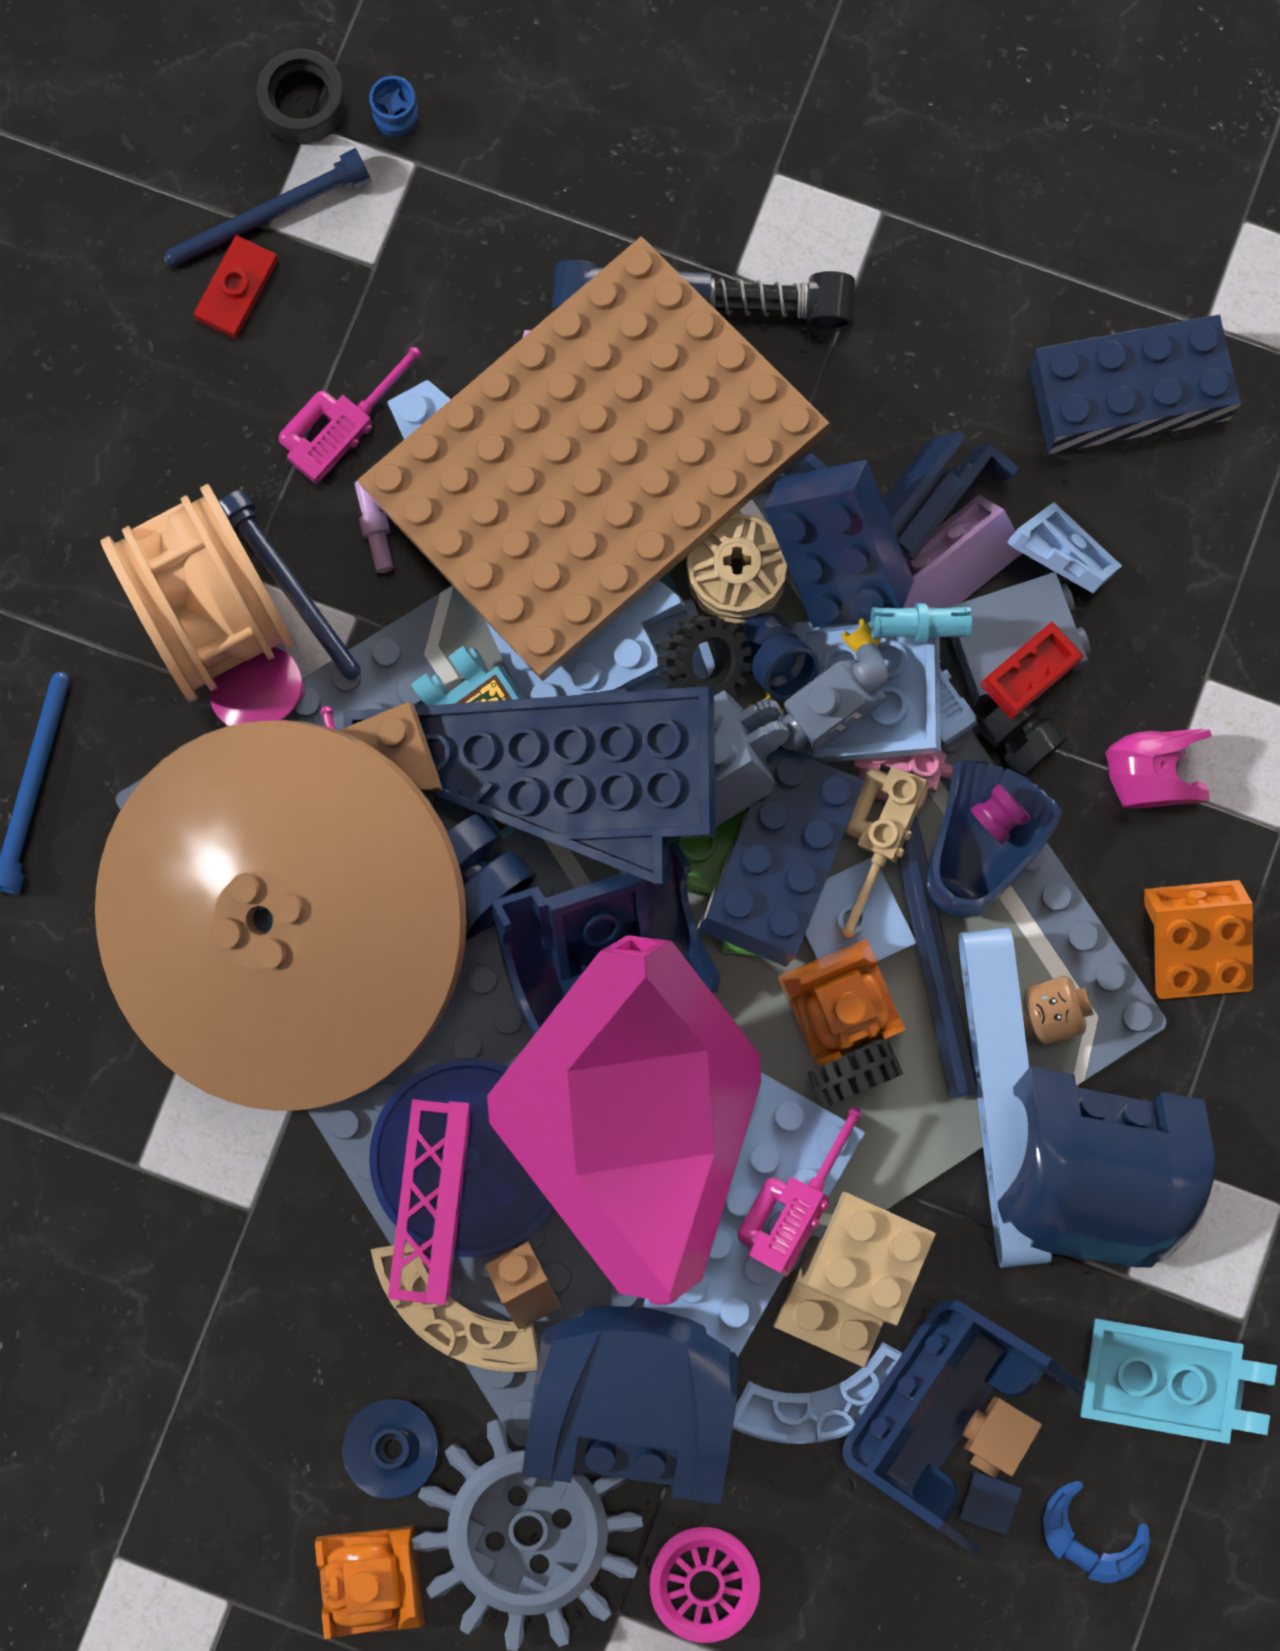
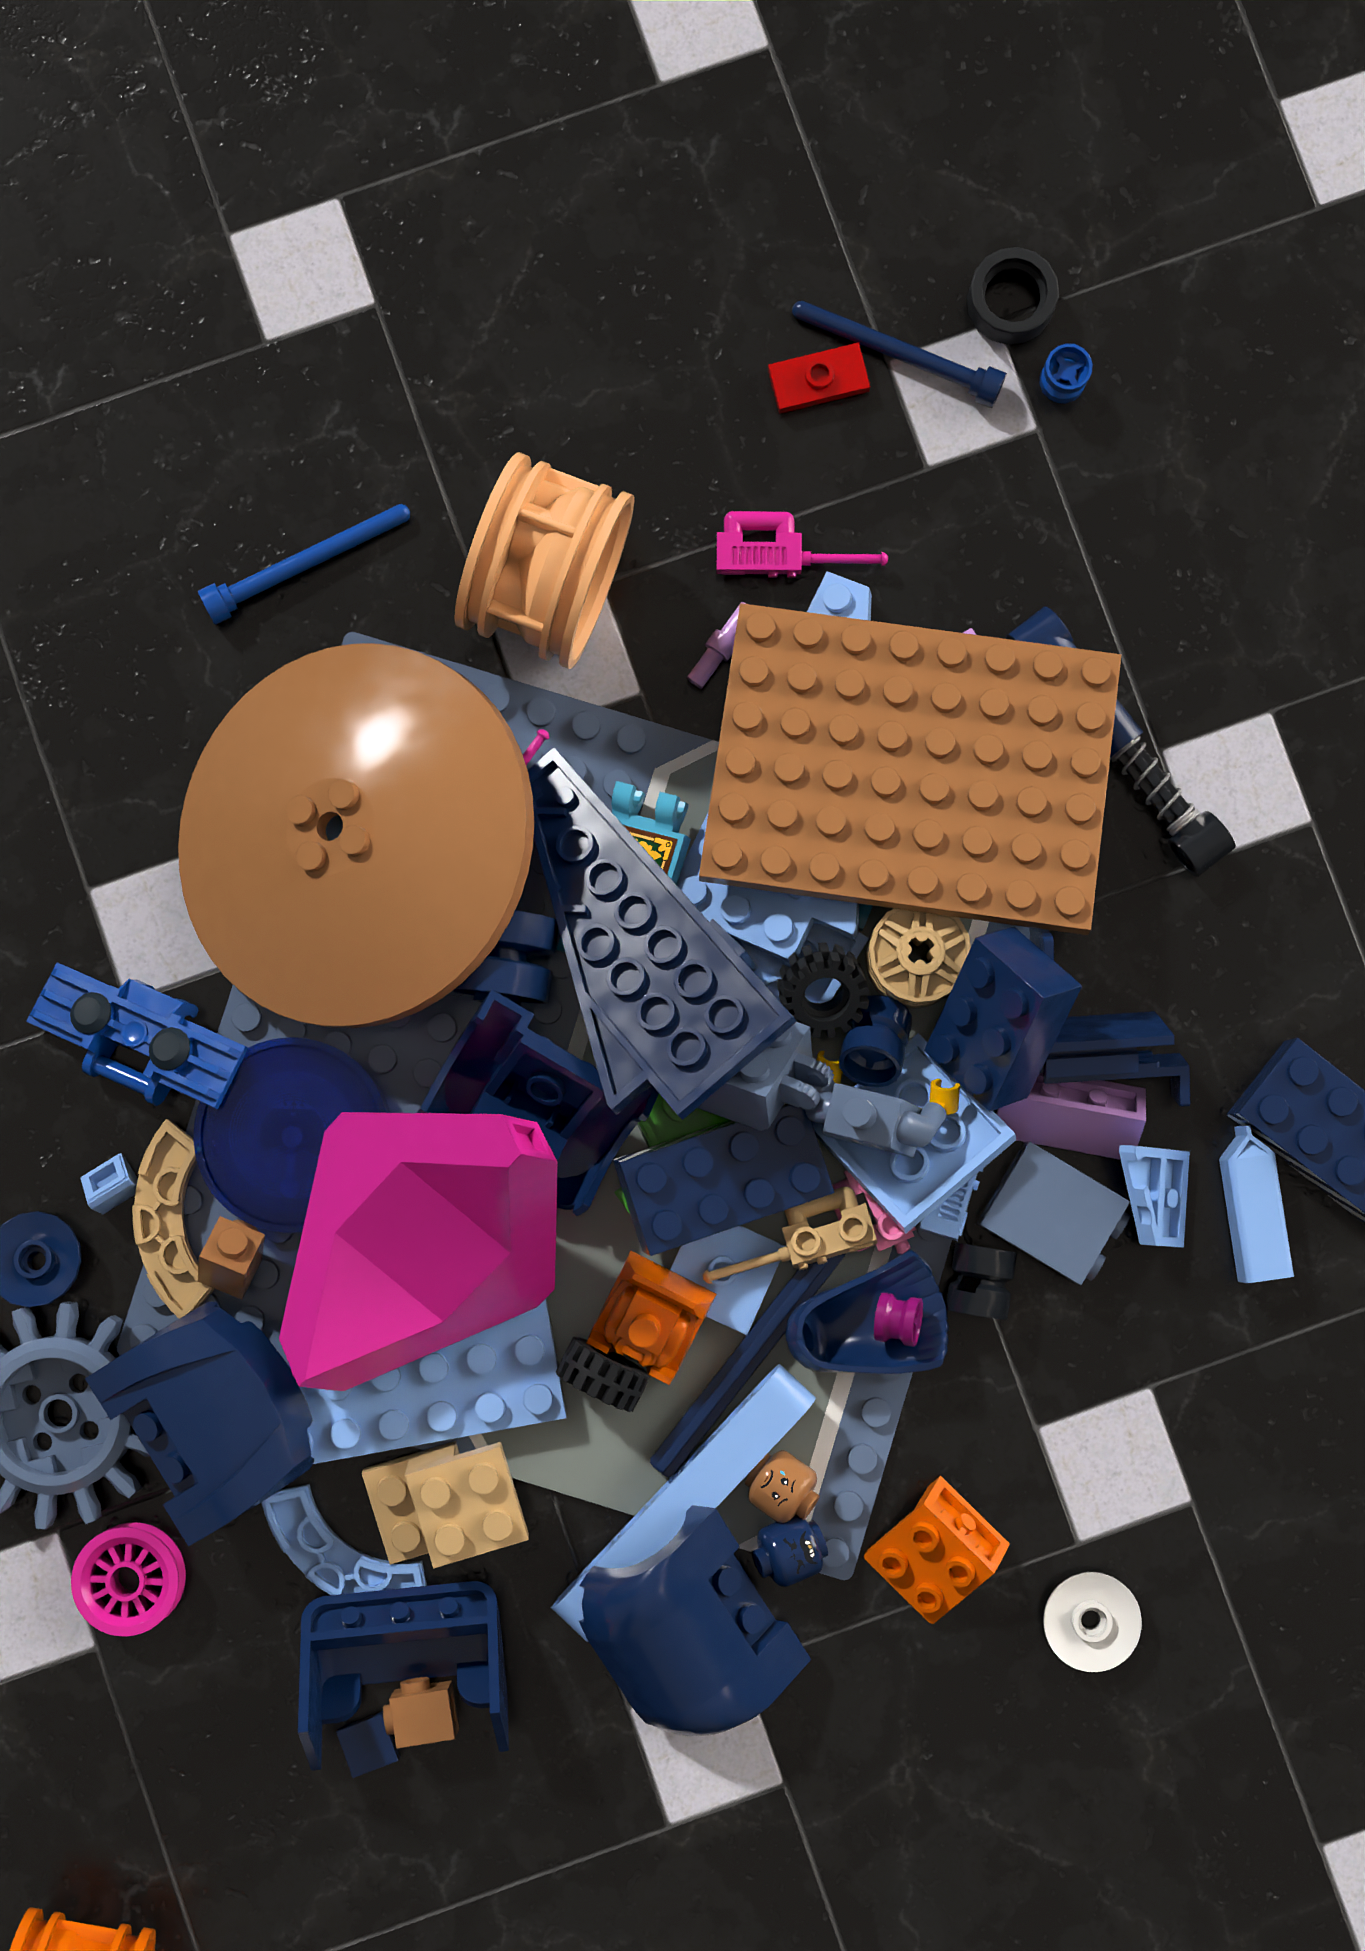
camera: 50 degrees right, 5 degrees up
(242, 518) = (642, 534): dark blue piece -> none
(258, 689) = (513, 672): dark pink dish -> none
(279, 1201) = (140, 1019): none -> blue piece
(382, 1340) = (109, 1184): none -> light blue slope
(402, 740) = (559, 812): medium nougat wing -> none
(448, 1202) = (240, 1150): dark pink fence -> none
(801, 1212) = (455, 1424): dark pink piece -> none
(921, 622) = (993, 1134): medium azure pin -> none
(1031, 670) = (1033, 1250): red plate -> none
(1059, 1536) = (394, 1873): blue piece -> none
(1108, 1045) = (790, 1551): none -> dark blue head
(1136, 488) = (1255, 1209): none -> light blue piece
(1145, 769) = (1035, 1399): dark pink helmet -> none
(1170, 1382) = (573, 1810): medium azure tile -> none

